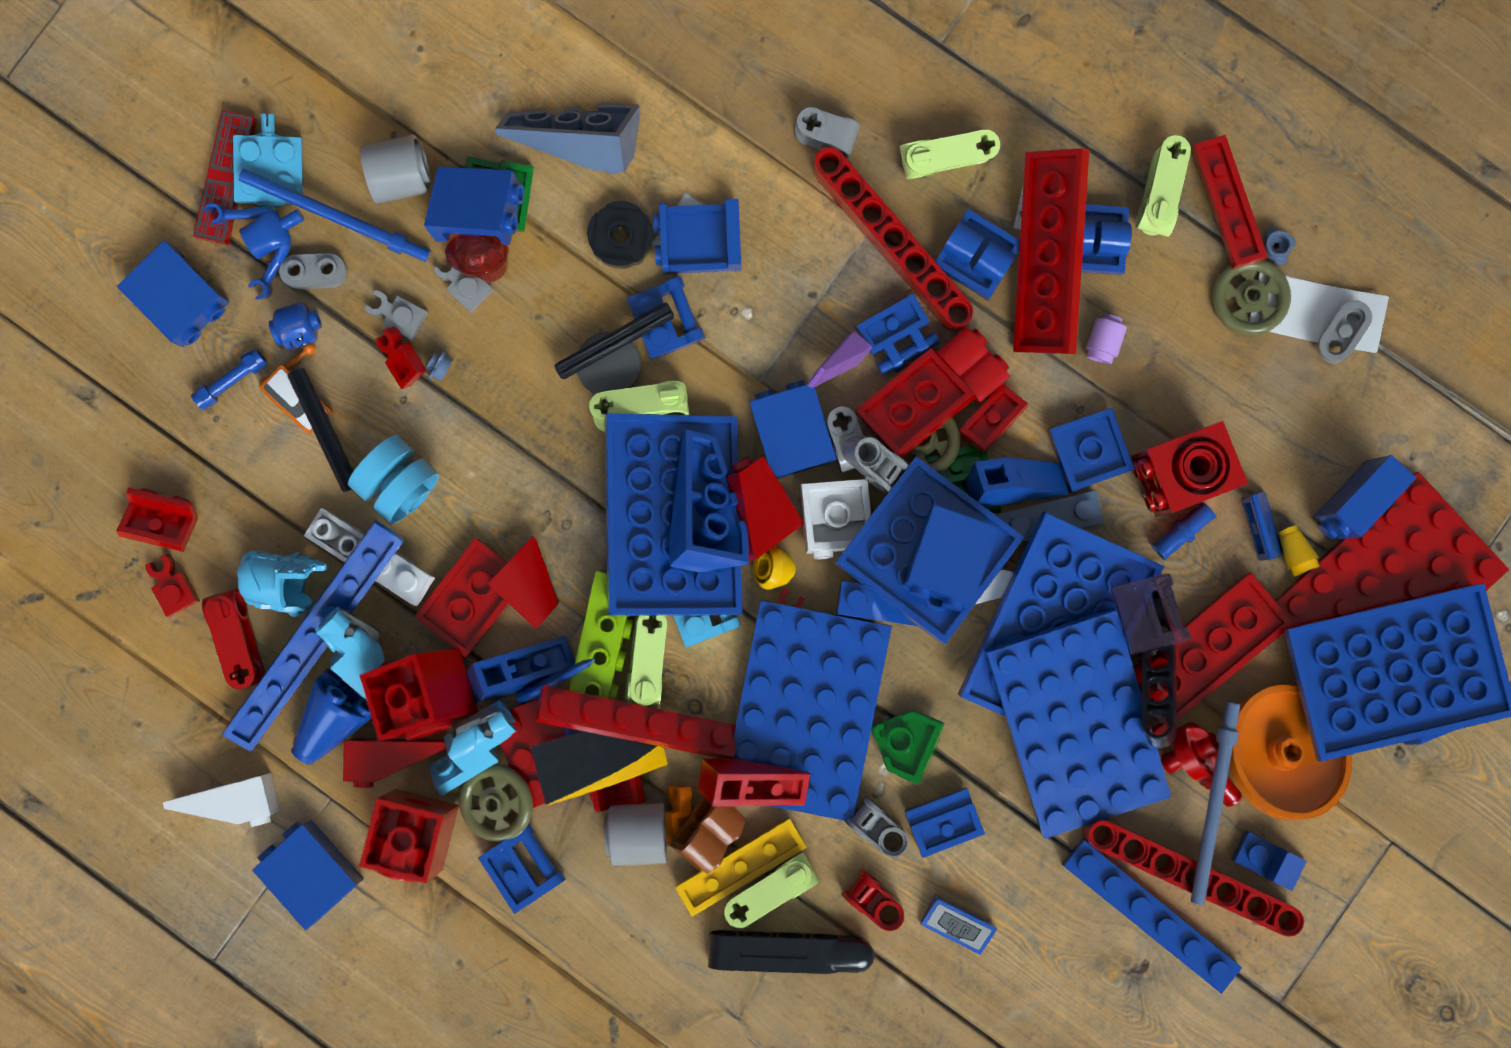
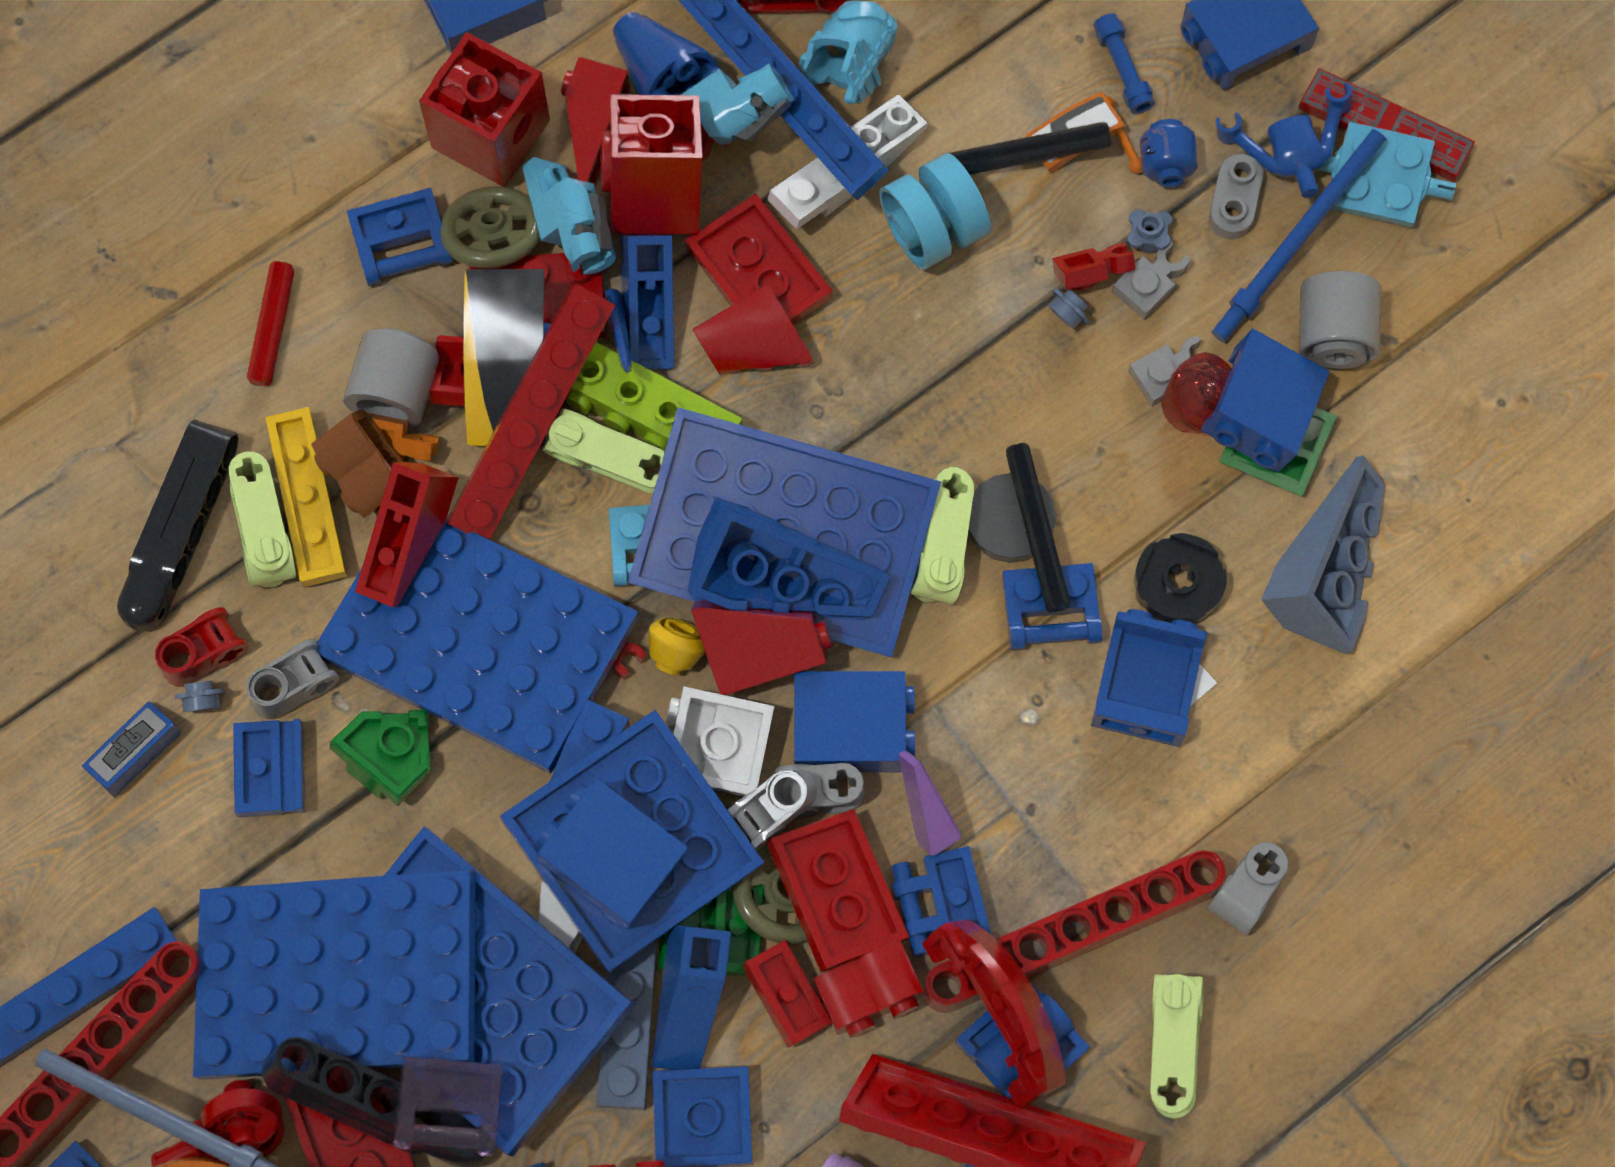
camera: 105 degrees right, 15 degrees down
(368, 328) = (1149, 240): none -> sand blue plate
(616, 939) = (270, 324): none -> red axle
(909, 888) = (200, 696): none -> sand blue plate
(961, 266) = (1010, 1003): none -> red windscreen

